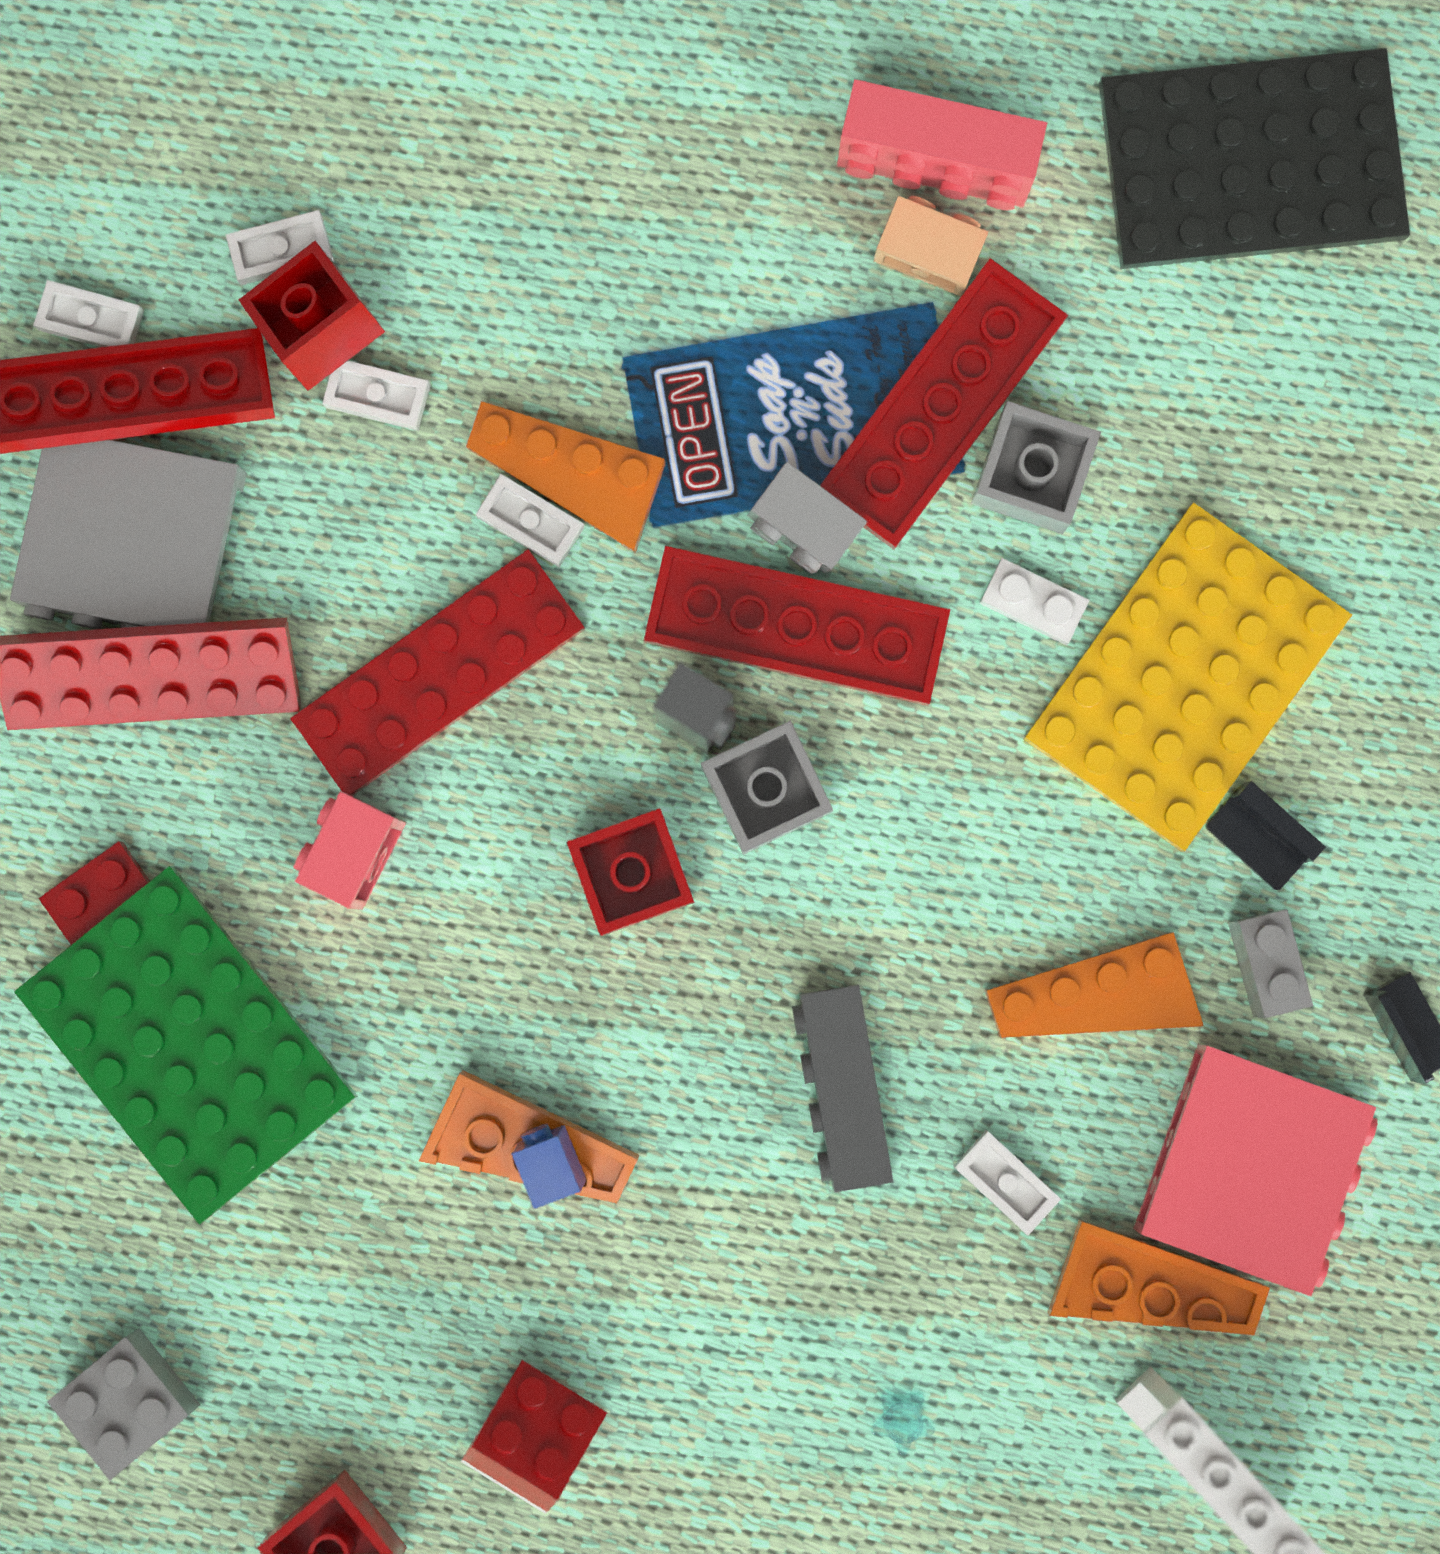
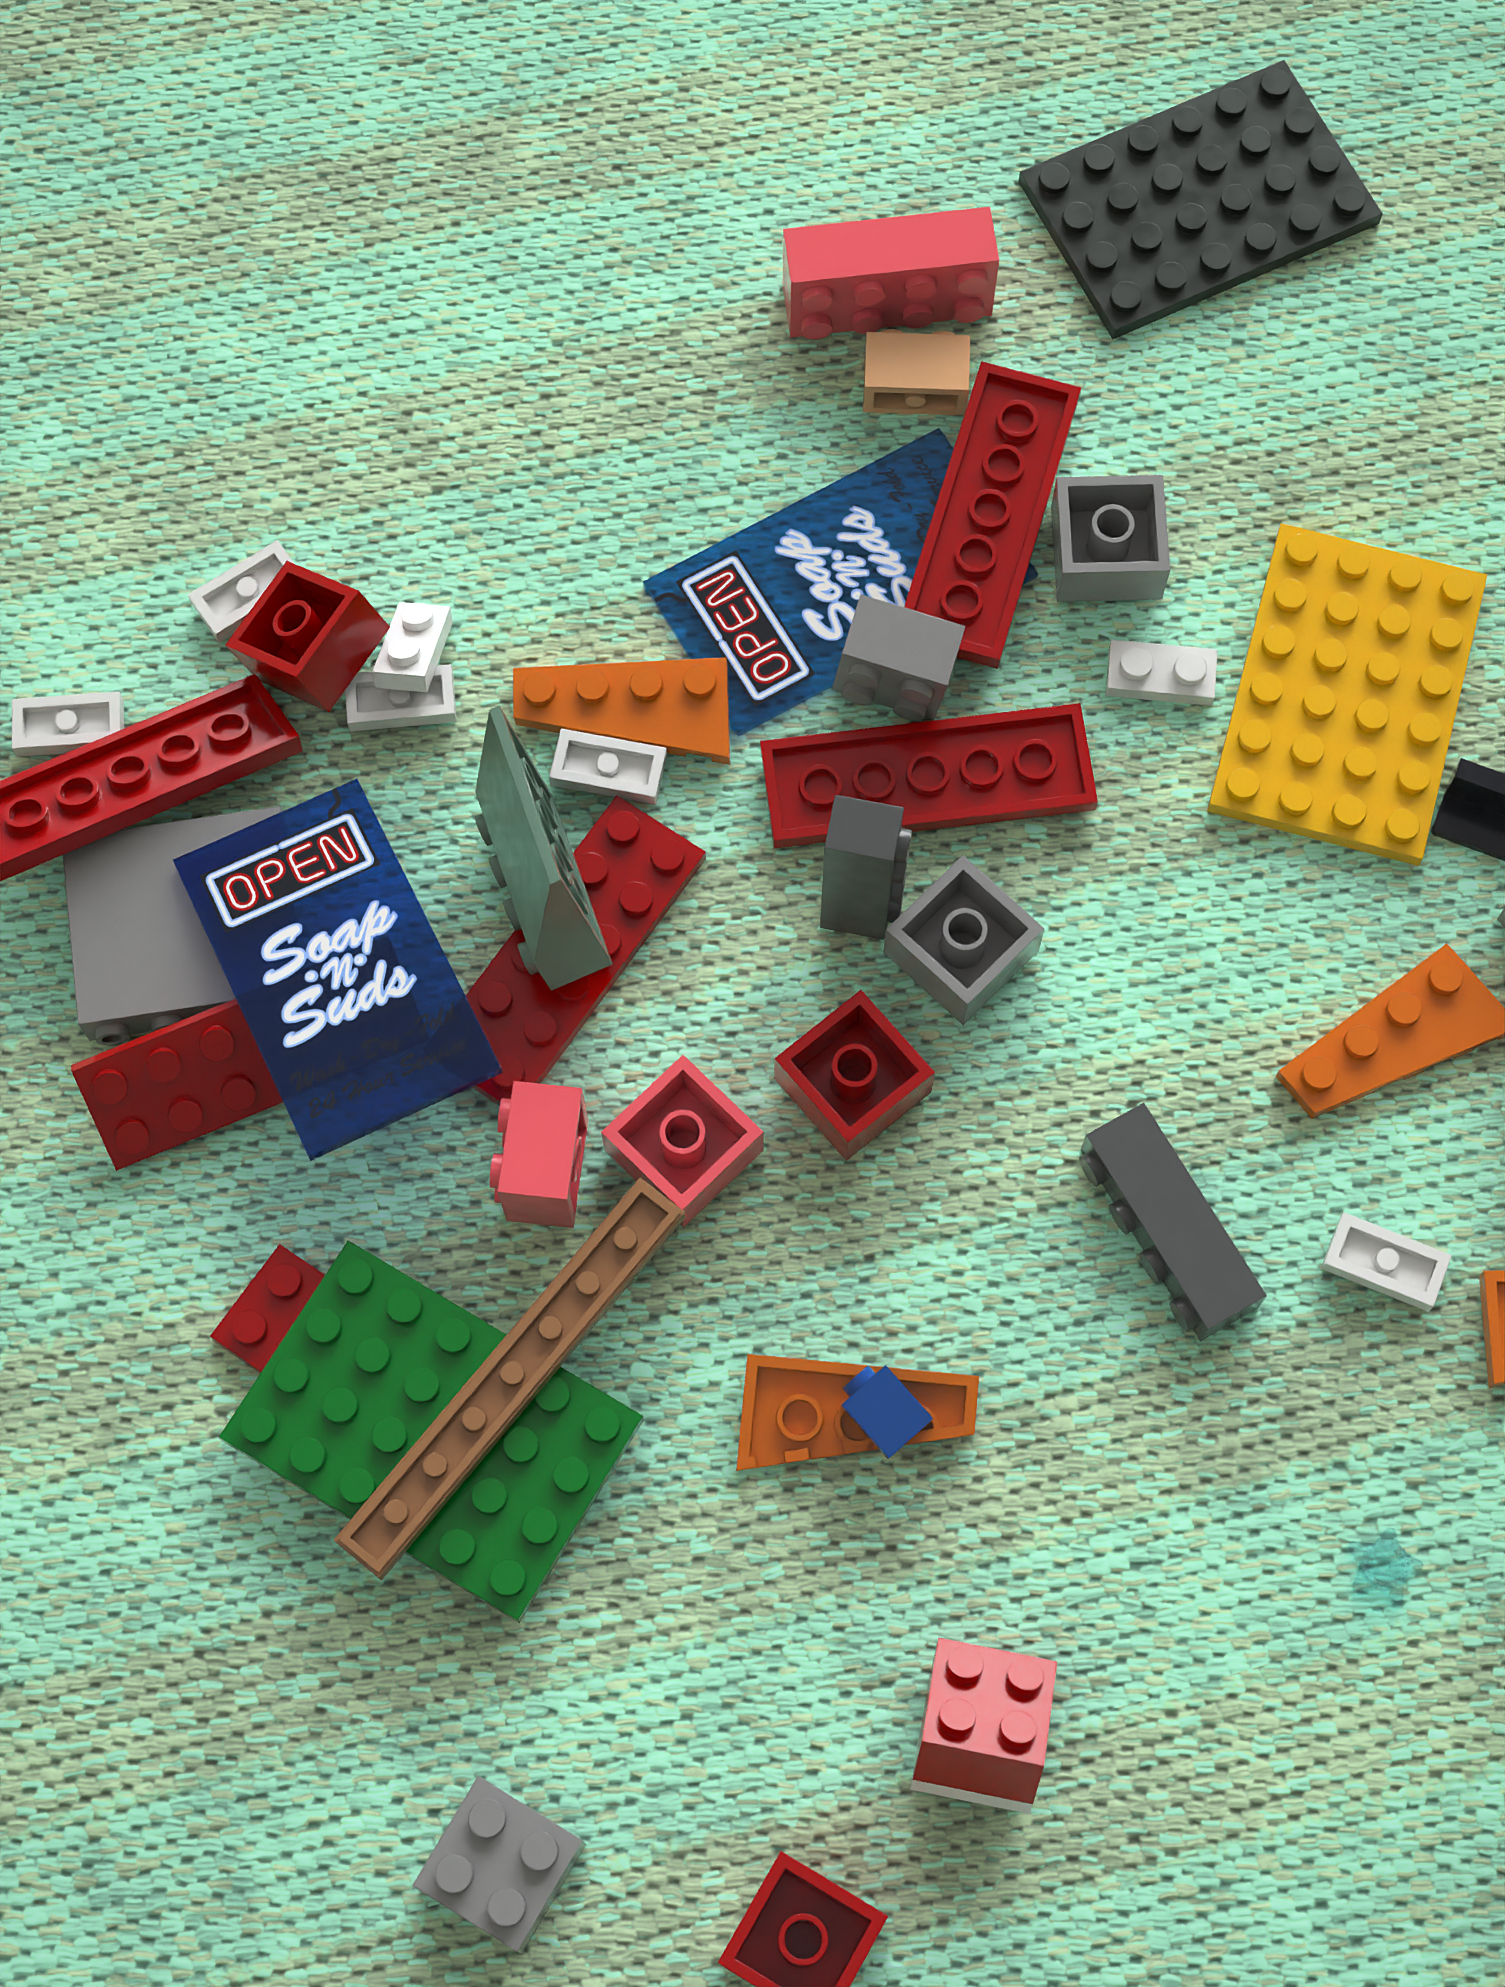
camera: 20 degrees left, 15 degrees down
(230, 633) = (336, 969): none -> clear blue piece
(258, 1032) = (509, 1379): none -> medium nougat tile
(400, 353) = (412, 647): none -> white plate
(432, 599) = (535, 862): none -> sand green slope
(470, 878) = (683, 1138): none -> coral brick

